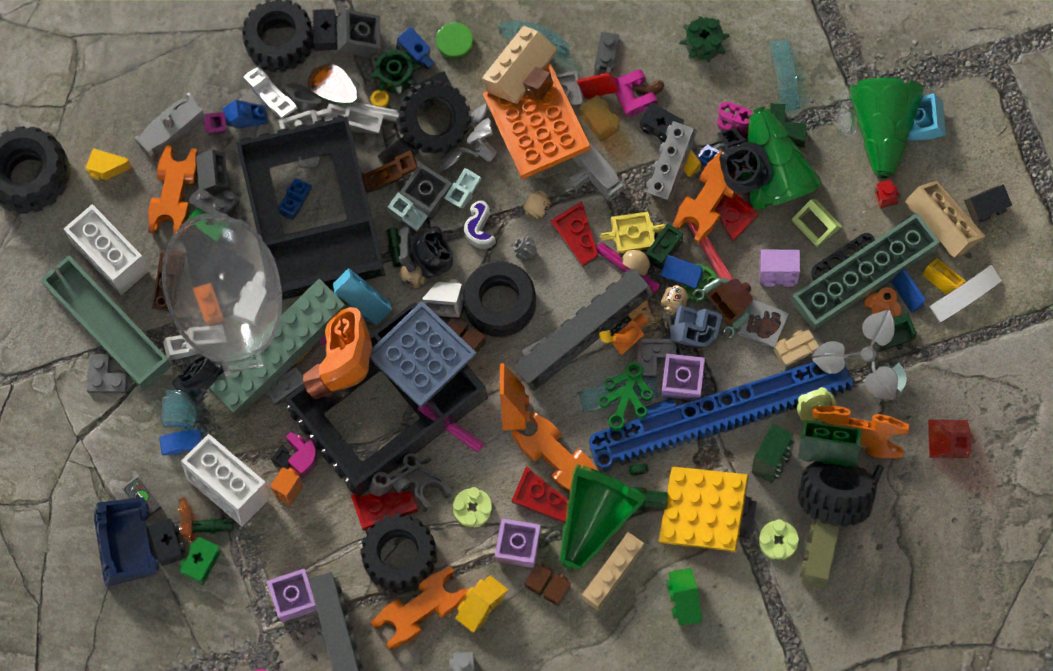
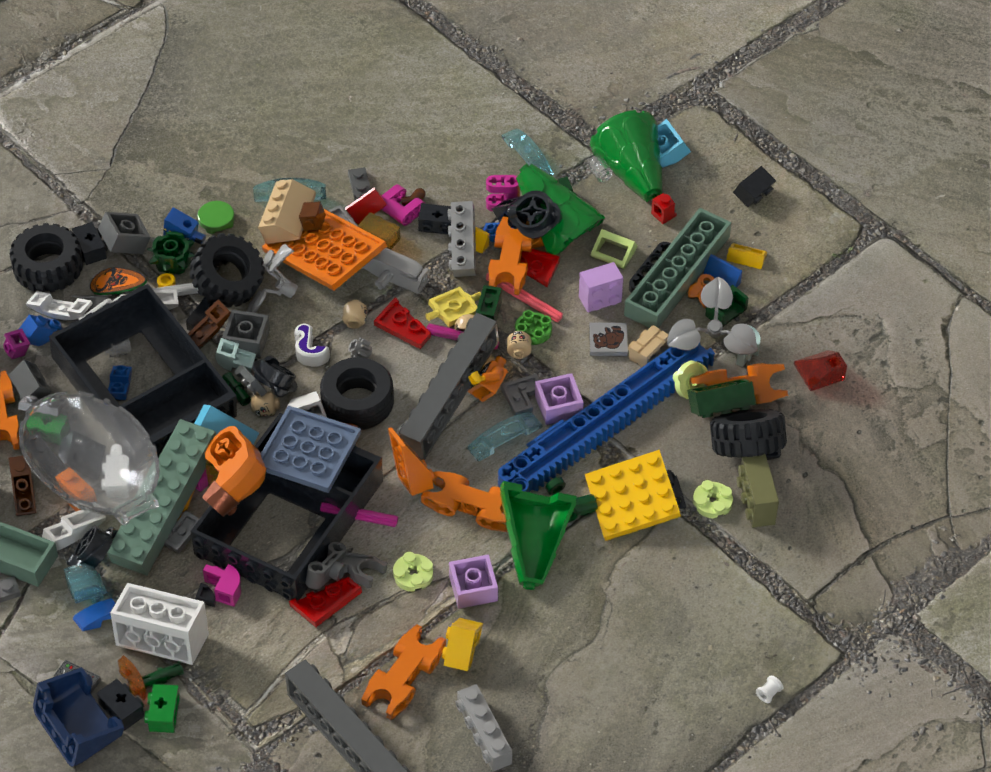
camera: 30 degrees left, 20 degrees down
(287, 485) = (223, 610): orange brick -> none
(292, 595) = (272, 702): lavender brick -> none
(398, 527) = (361, 607): black tyre -> none
(462, 190) = (280, 321): light aqua brick -> none
(539, 497) = (470, 540): red wing -> none
(539, 580) = (508, 604): reddish brown piece -> none
(613, 571) = (574, 574): tan brick -> none
(626, 393) = (512, 408): green plant -> none
(682, 272) = (515, 318): blue slope -> none
(685, 595) = (655, 567): green brick -> none
(695, 327) = (549, 357): sand blue brick -> none
(704, 38) = (443, 146): dark green brick -> none
(730, 299) = (569, 325): reddish brown torso -> none
(772, 453) = (674, 424): dark green brick -> none
(945, 218) = (742, 218): tan slope -> none
(965, 294) = (771, 260): white slope -> none

